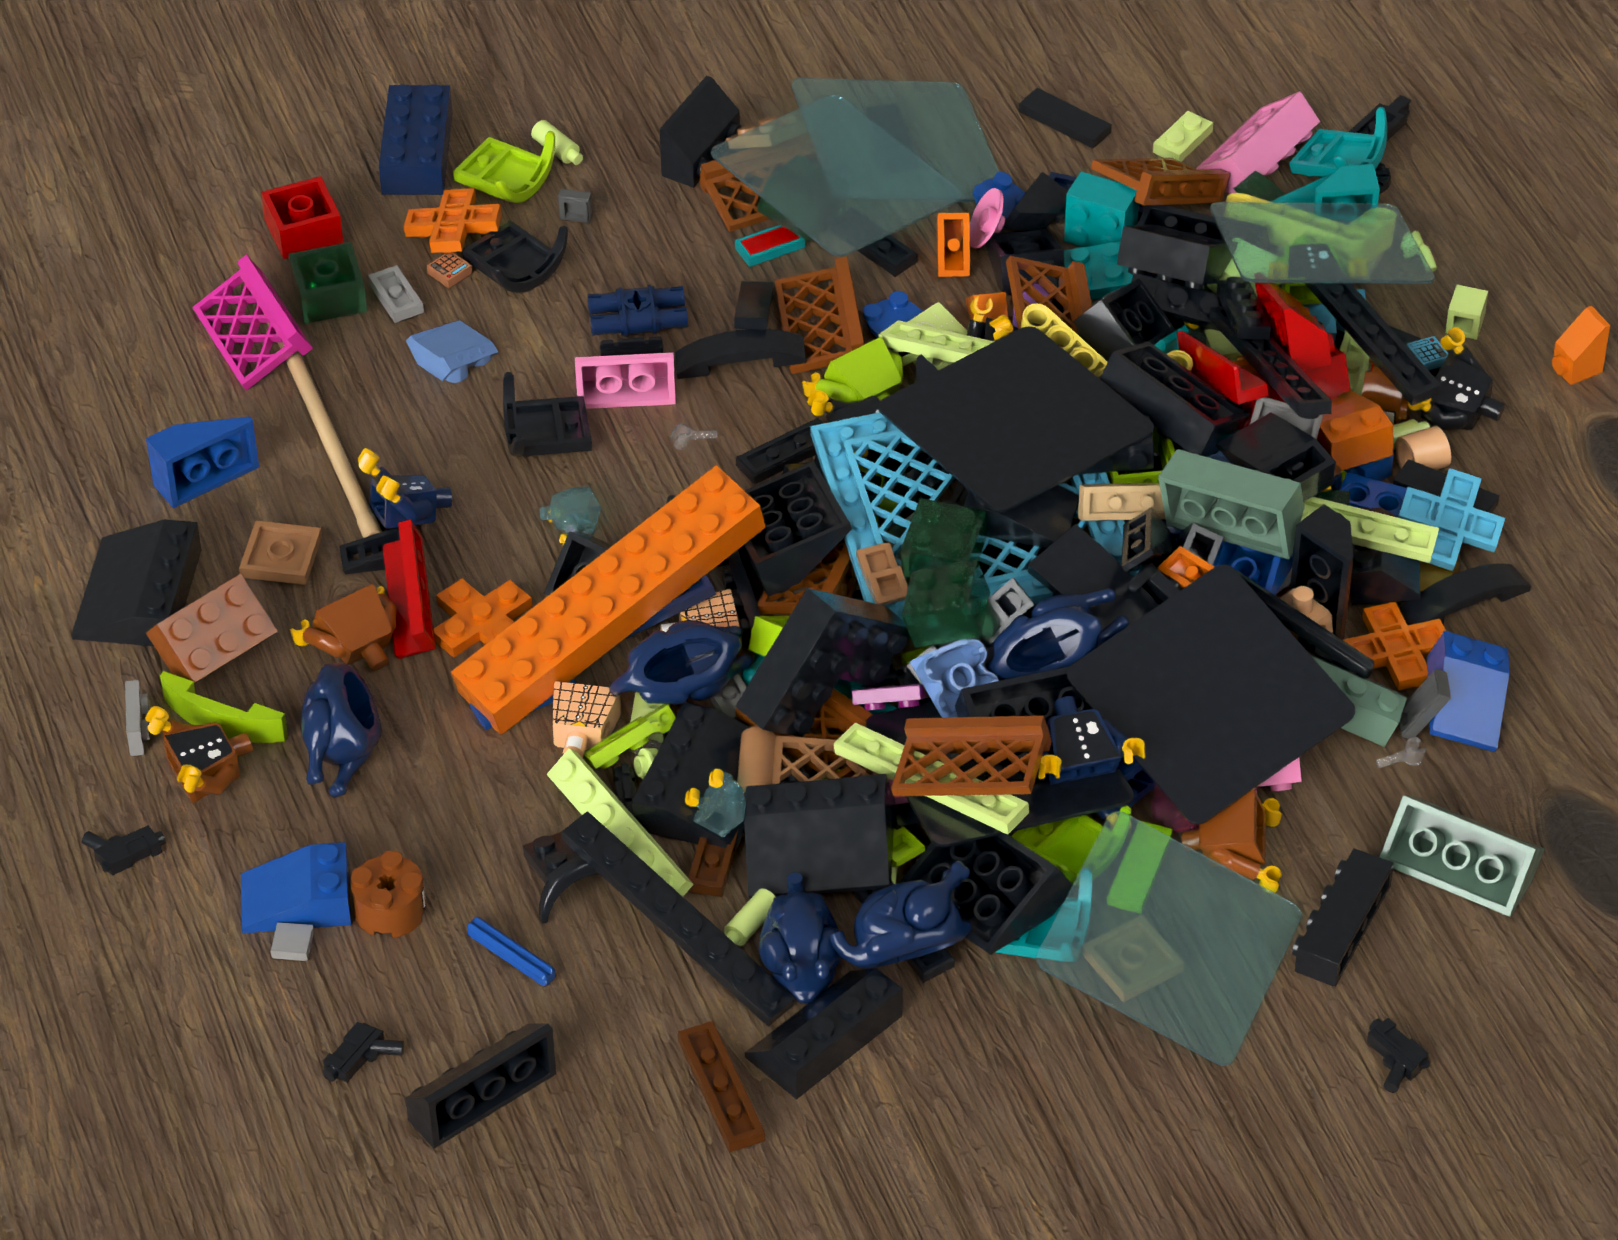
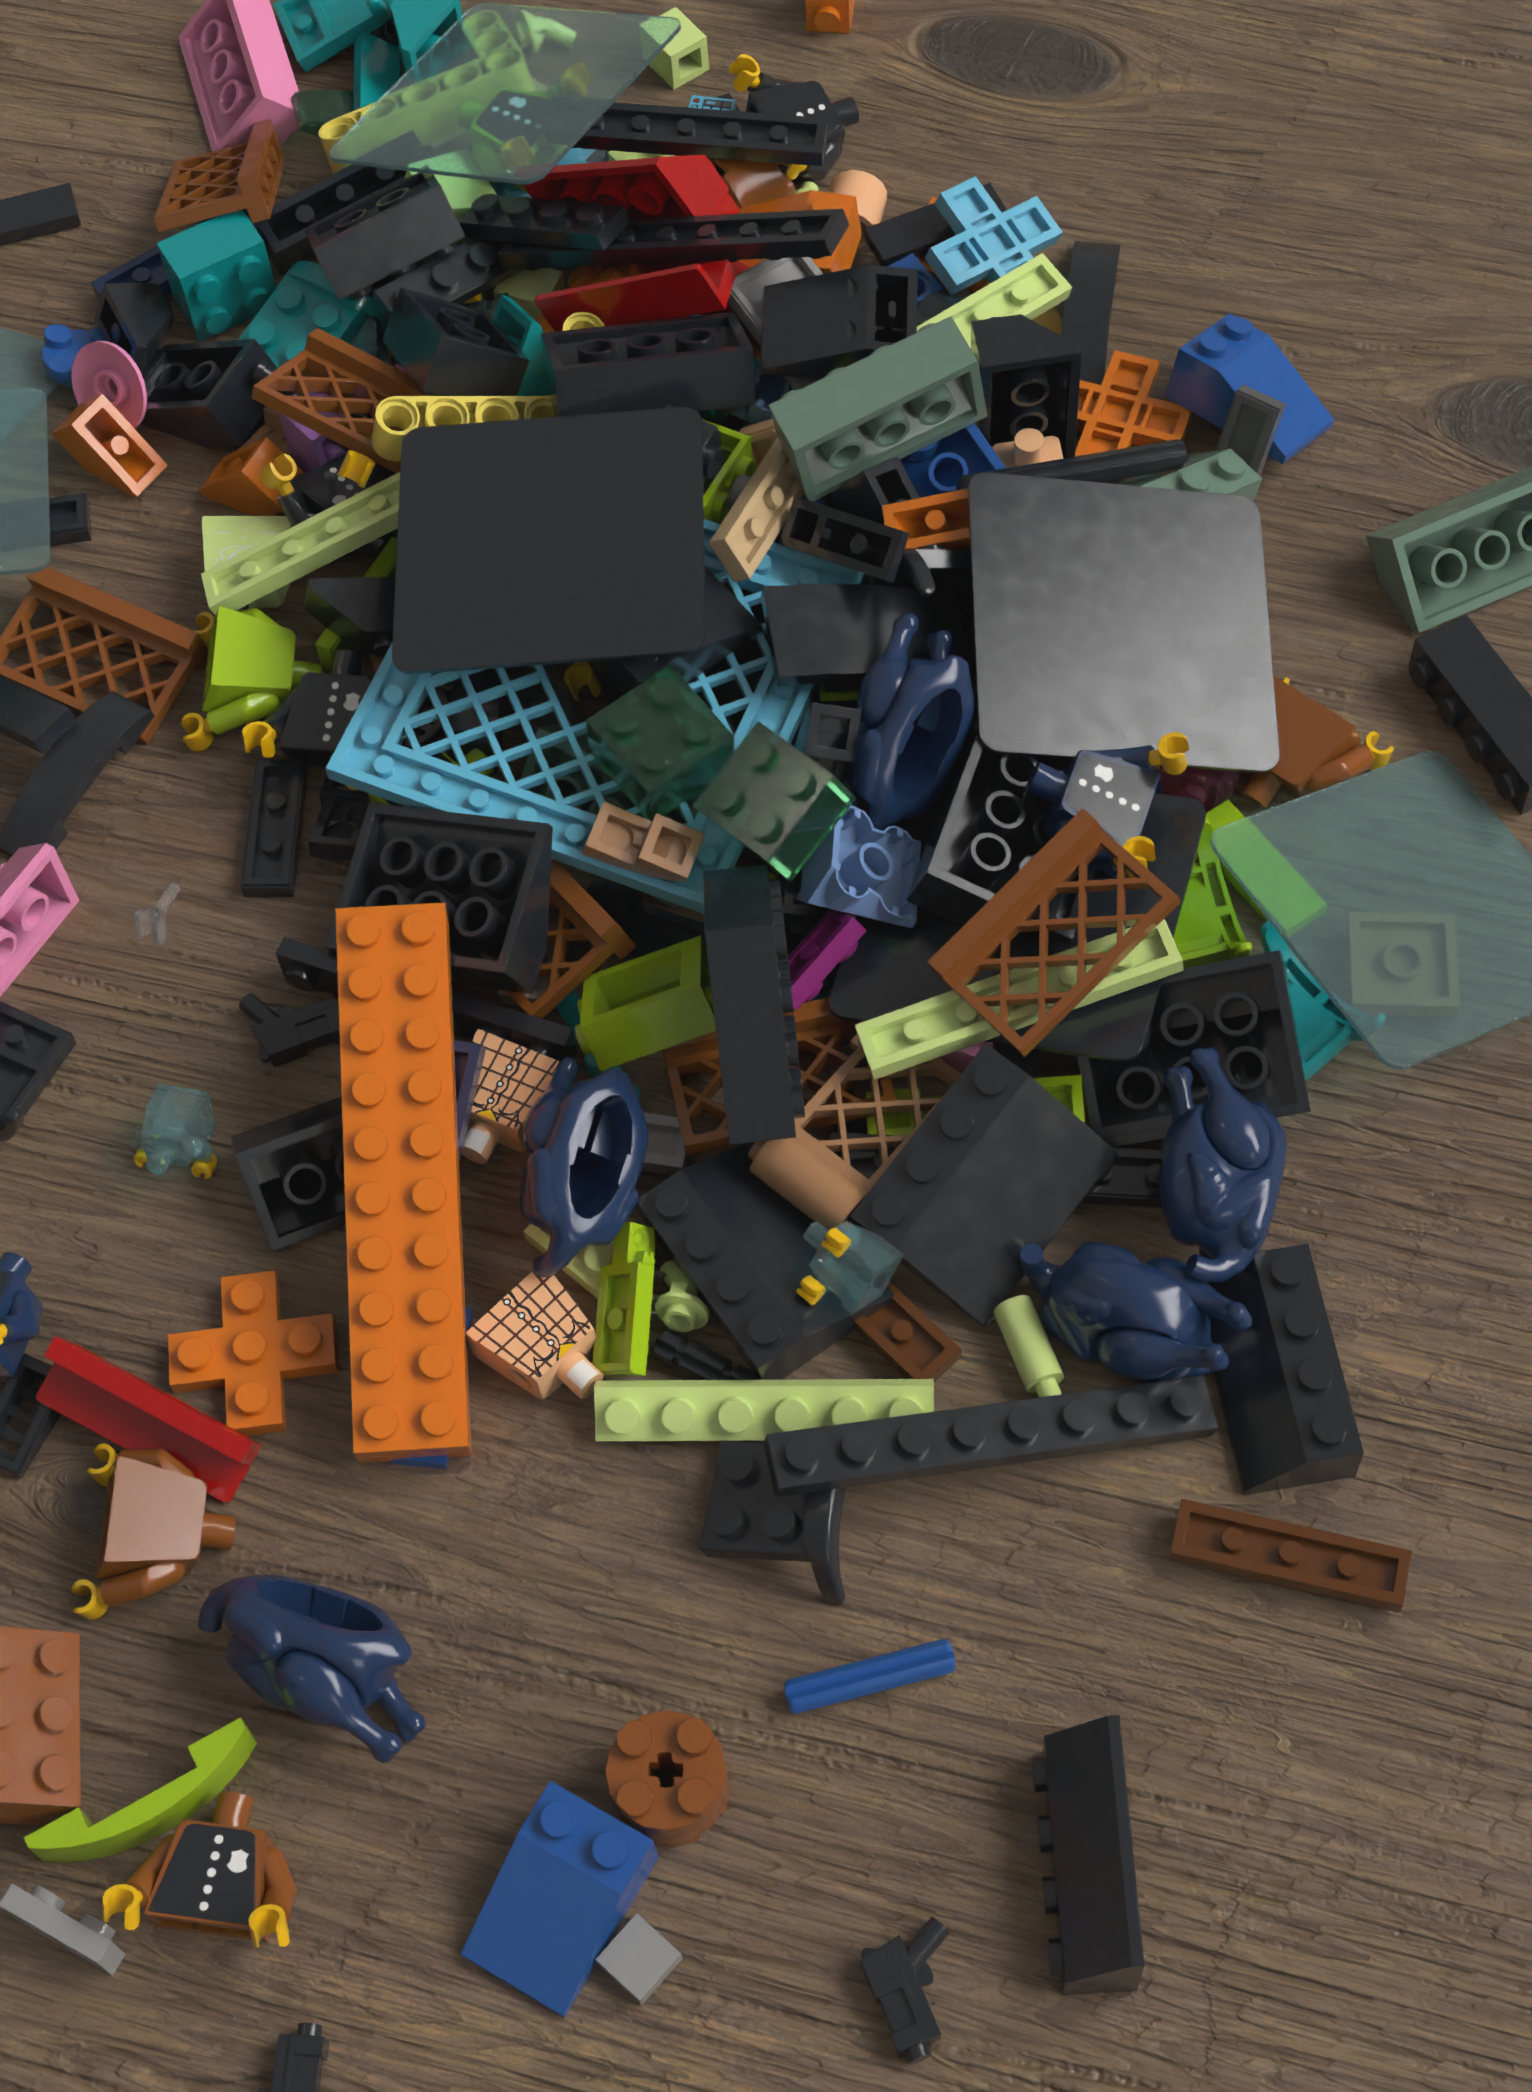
camera: 50 degrees left, 15 degrees up
(888, 311) = (166, 579): blue piece -> none
(1183, 136) = (152, 132): yellowish green plate -> none
(1409, 754) = (1279, 505): clear hand -> none

